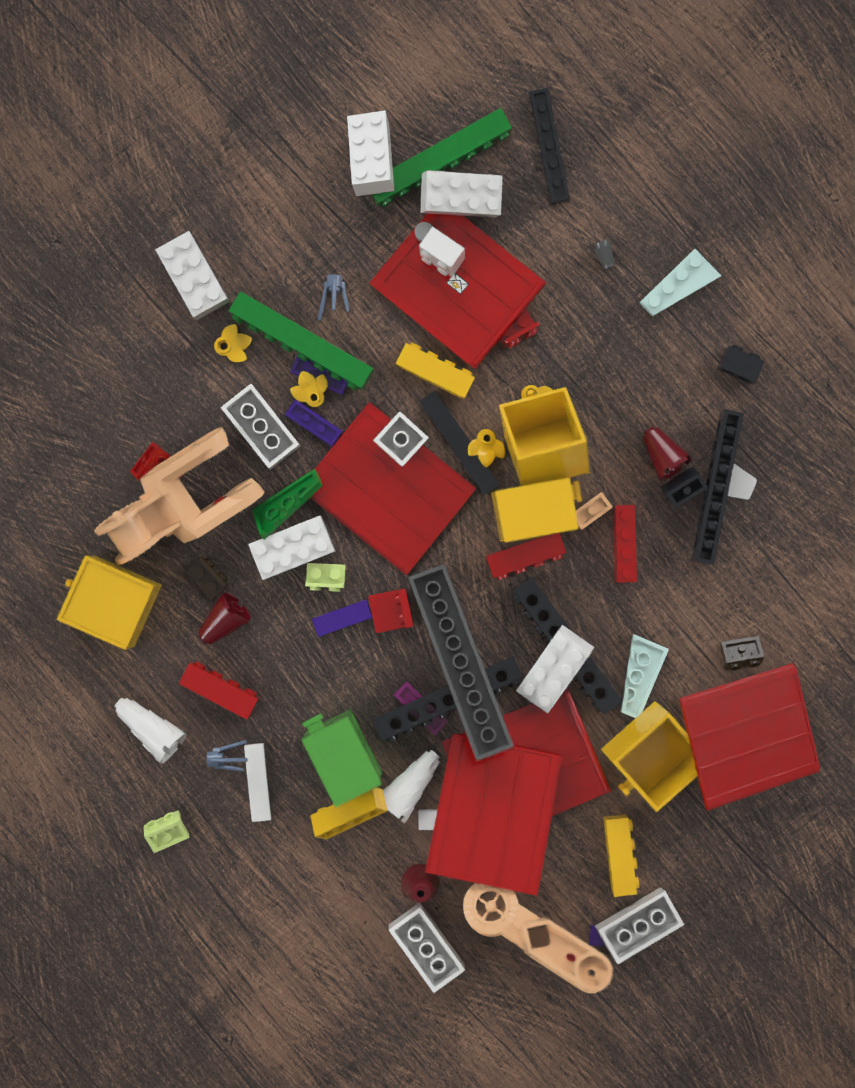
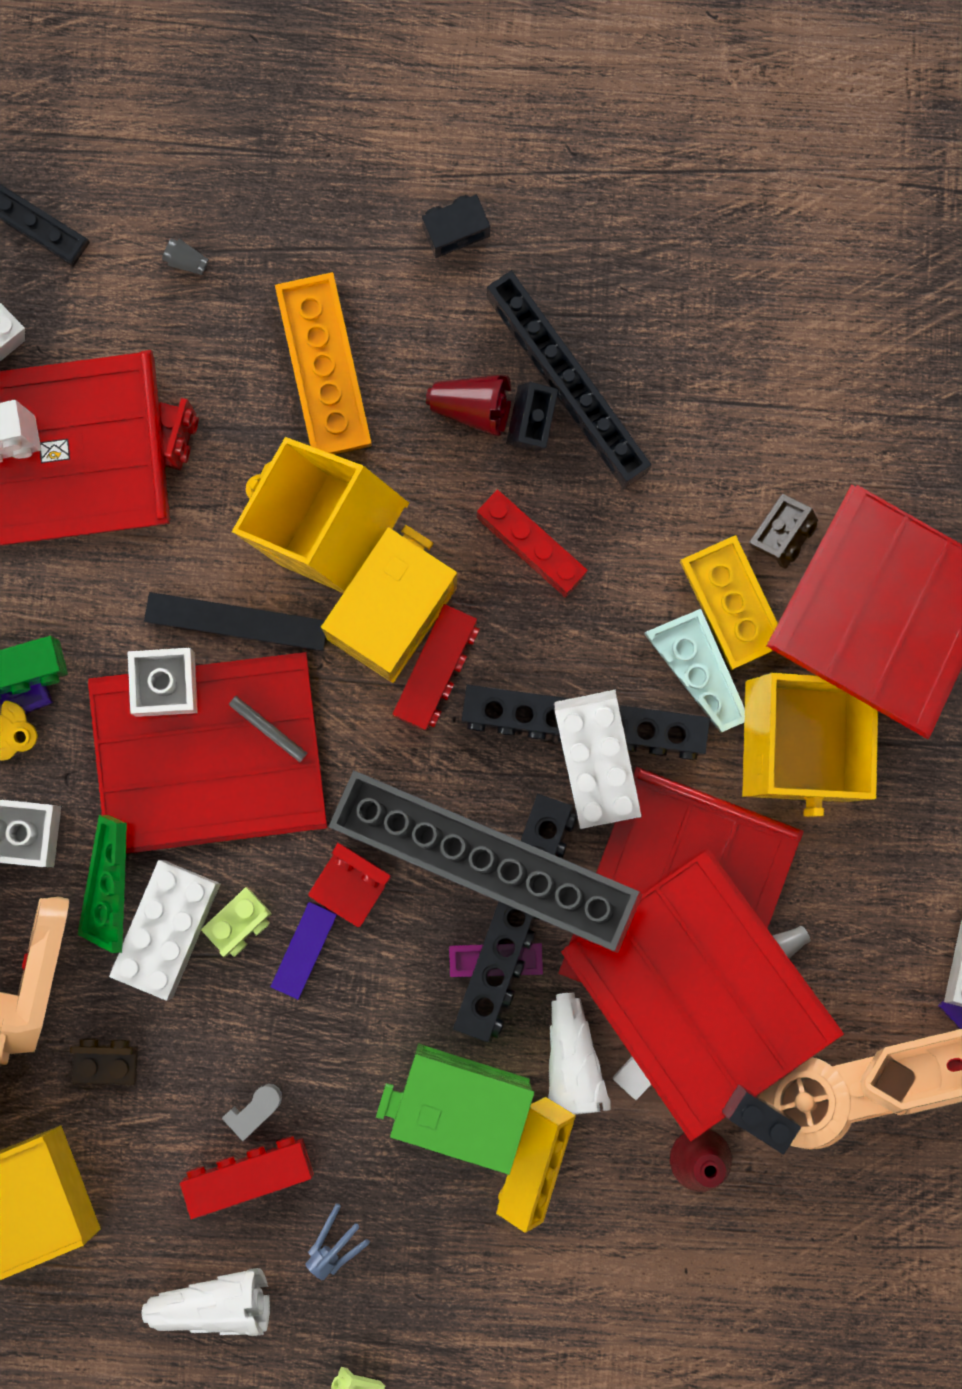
camera: 50 degrees left, 5 degrees down
(223, 619) = (168, 1091): dark red cone -> none
(251, 666) = (264, 1103): none -> light grey leg
(257, 782) = (399, 1238): white tile -> none
(313, 423) = (50, 766): dark purple tile -> none
(425, 505) = (268, 729): none -> dark grey bar
(426, 947) = (784, 1226): white brick -> none
(435, 371) = (126, 570): yellow brick -> none
(465, 894) = (761, 1119): none -> black brick
(486, 450) = (274, 598): yellow plate -> none
(557, 832) = (792, 940): none -> light grey cone
(592, 510) = (459, 543): light nougat plate -> none
(616, 367) = (323, 364): none -> light orange plate
(620, 855) = (888, 892): yellow brick -> none
(682, 281) = (301, 198): light aqua wing -> none
(686, 660) = (731, 601): none -> yellow plate
(741, 483) = (591, 351): white sticker -> none

